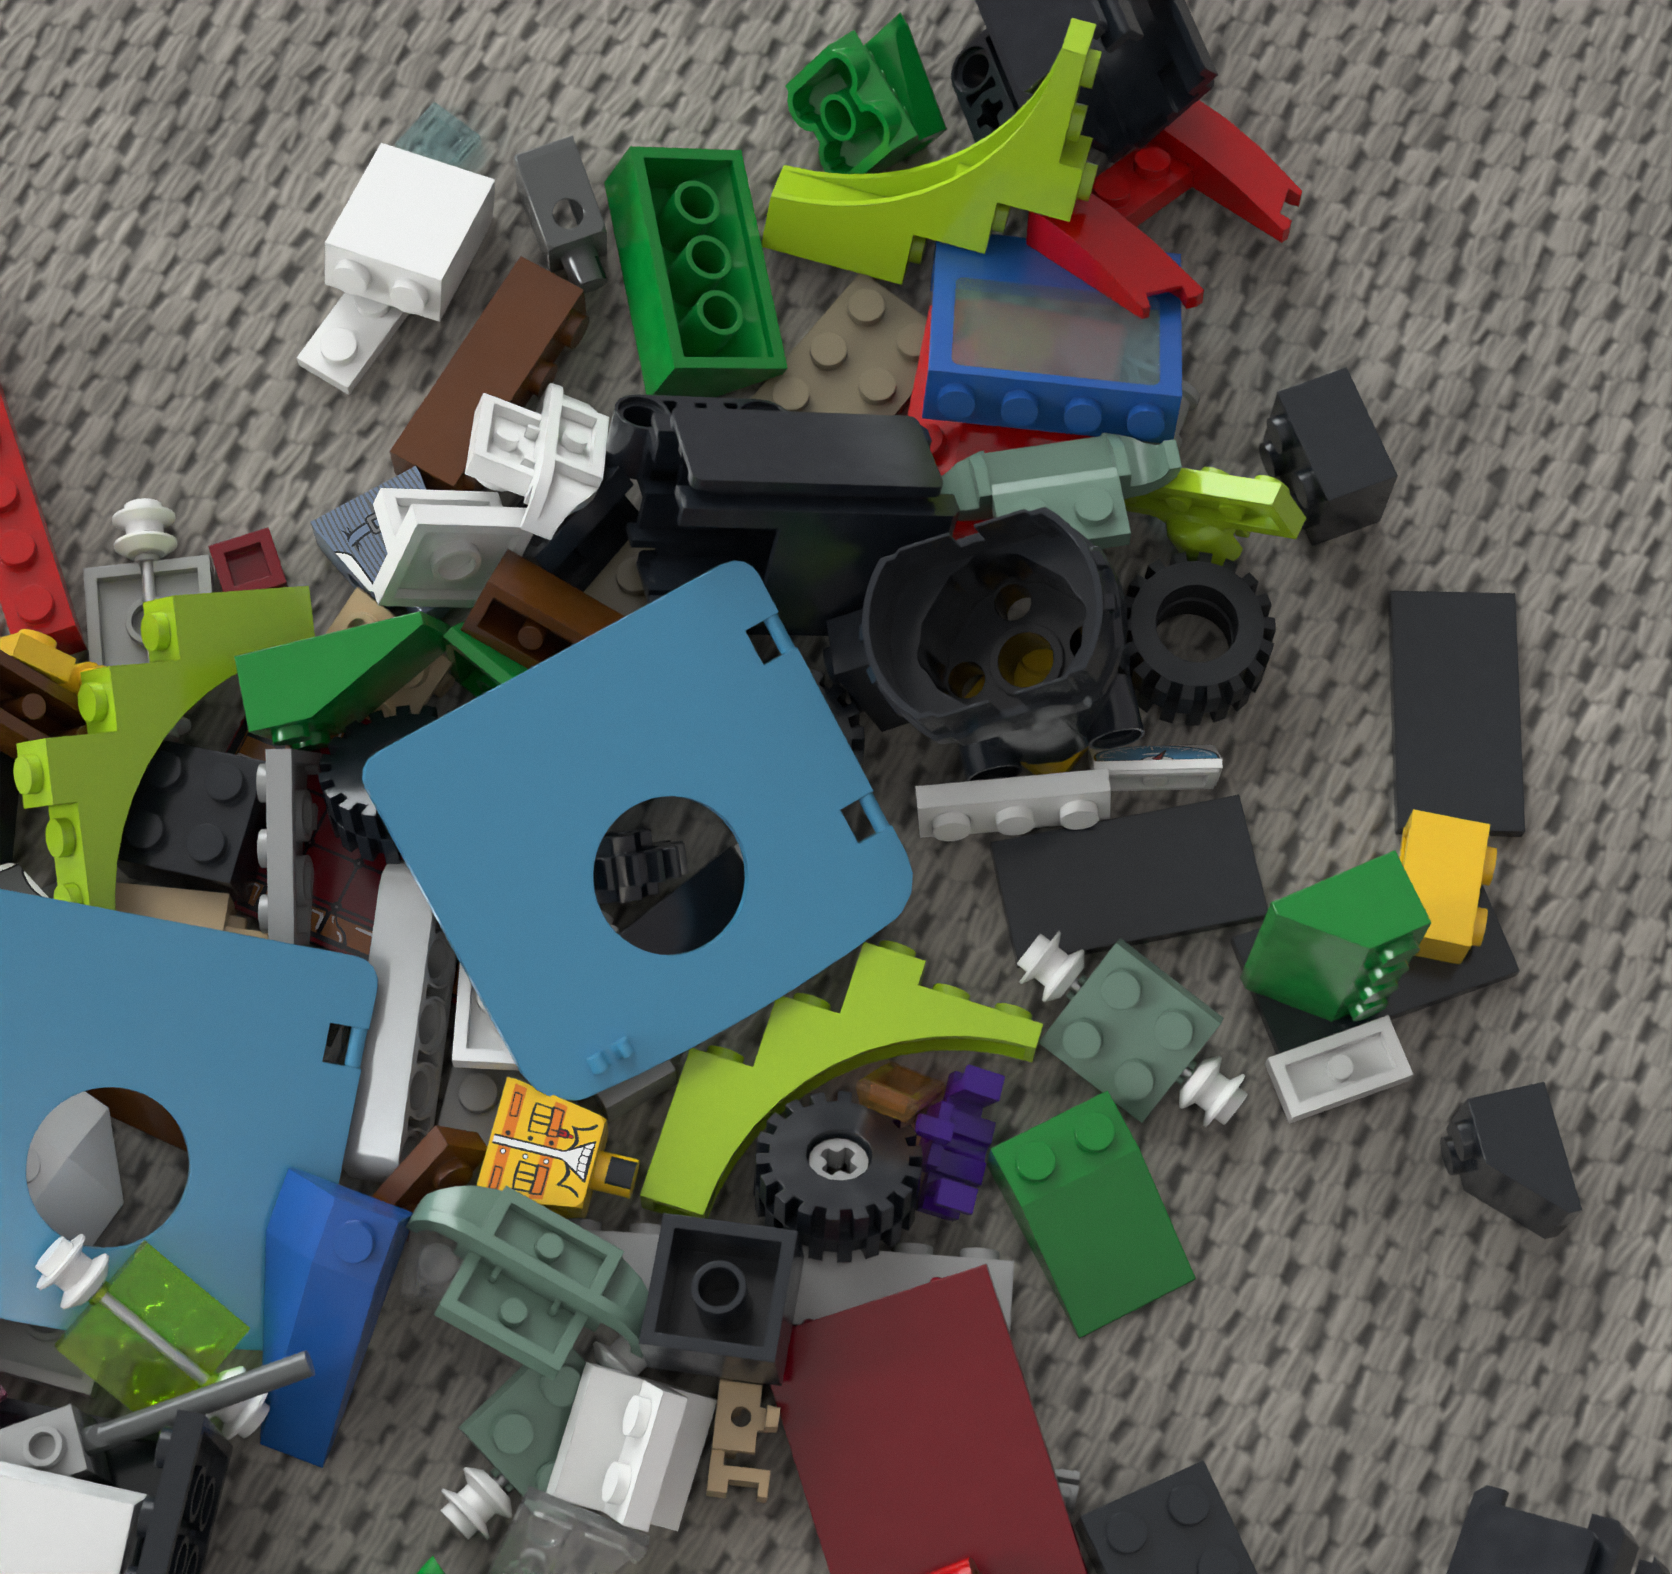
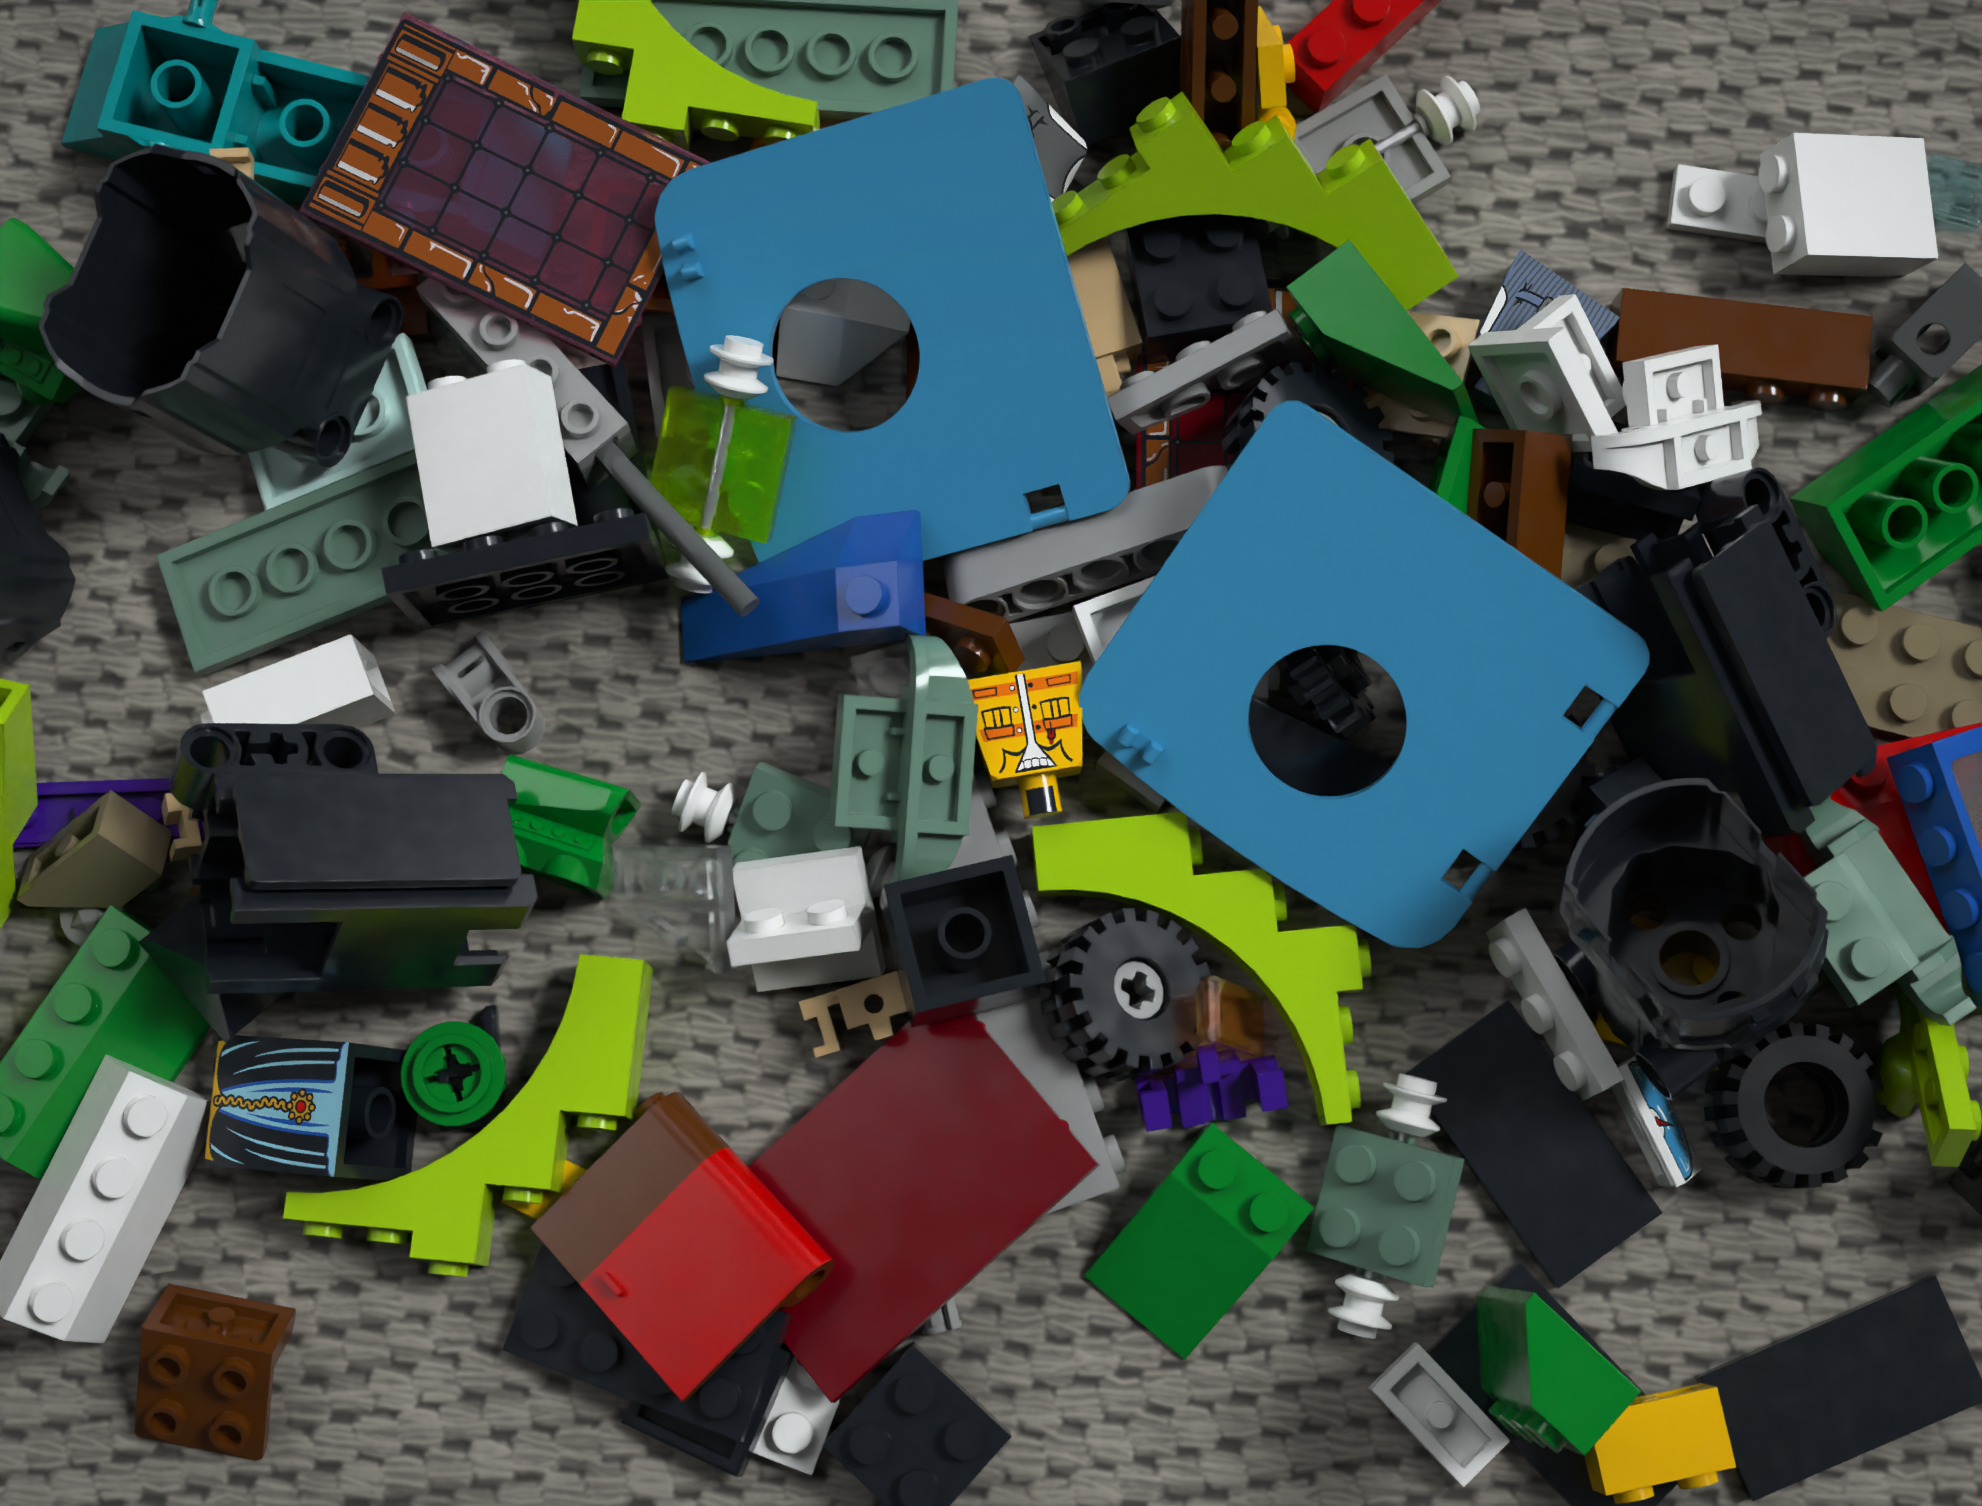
camera: 65 degrees right, 10 degrees up
(248, 562) = (1458, 216): dark red plate -> none

